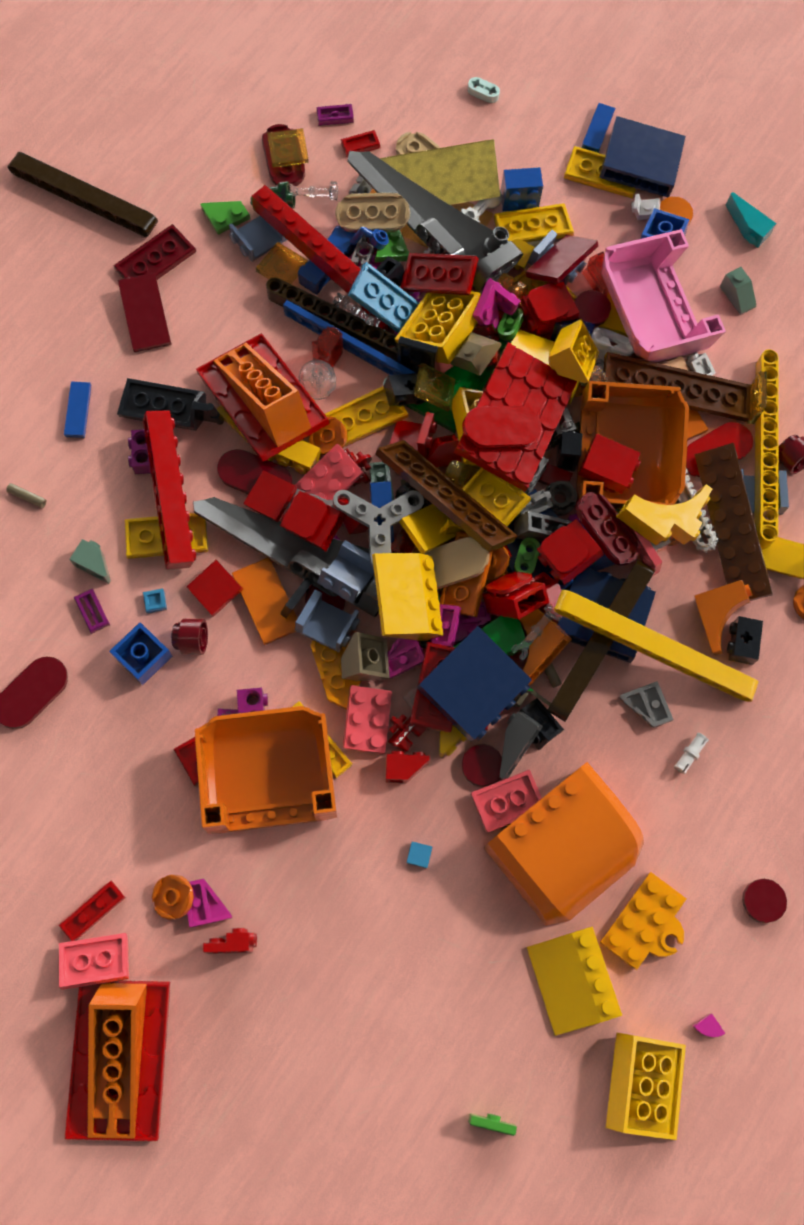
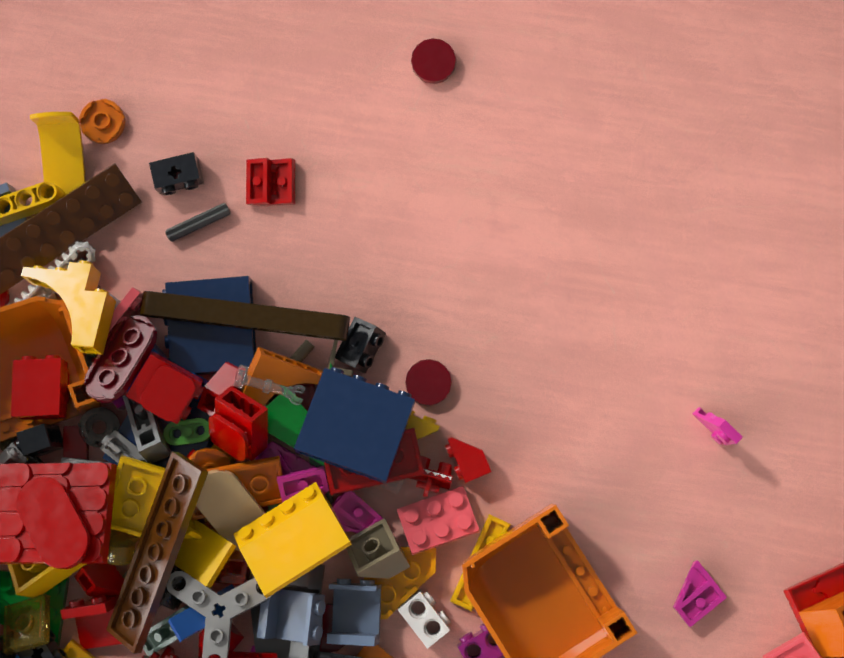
camera: 105 degrees left, 10 degrees up
(172, 897) = (706, 629): orange tile -> none
(236, 942) = (720, 541): red plate -> none
(295, 668) = (419, 621): none -> white brick
(325, 991) = (721, 430): none -> dark pink wing
(419, 854) = (546, 404): dark azure tile -> none
(493, 1123) = (756, 227): bright green plate -> none
(506, 800) = (453, 340): coral plate -> none
(518, 738) = (388, 357): dark grey slope -> none
(568, 847) = (471, 262): orange slope -> none
(574, 981) = (594, 206): yellow slope -> none
(645, 1086) = (656, 104): yellow slope -> none
(646, 923) = (507, 161): light orange plate -> none
(649, 704) = (288, 243): light grey wing -> none
(656, 645) = (229, 261): yellow beam -> none
(691, 753) = (320, 182): white pin -> none
(696, 631) = (197, 222): none -> dark grey axle
(708, 713) = (270, 181): none -> red slope
(709, 1027) = (574, 68): dark pink tile -> none
(717, 607) = (153, 214): orange arch -> none

